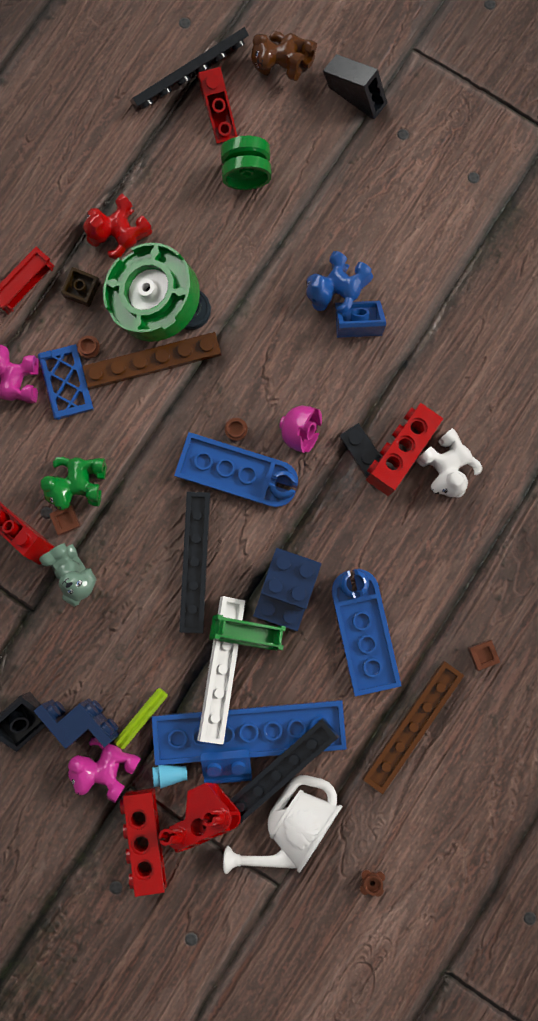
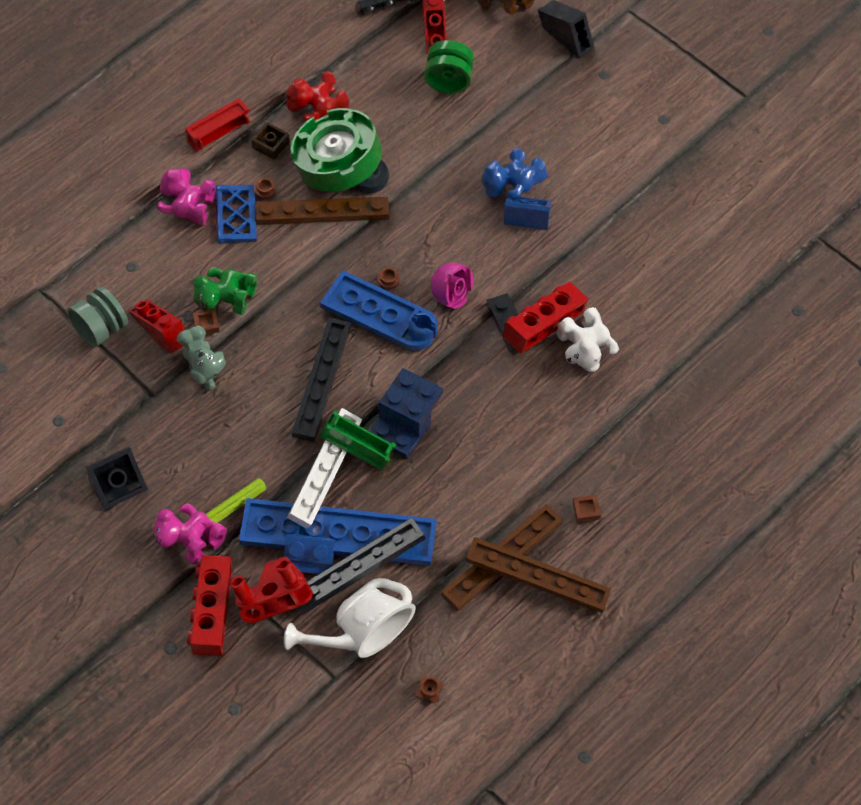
camera: 10 degrees right, 25 degrees down
(77, 722) = (175, 483): dark blue bracket -> none
(168, 775) = (249, 554): medium azure cone -> none
(364, 633) = (472, 468): blue plate -> none
(453, 745) = (538, 575): none -> reddish brown plate

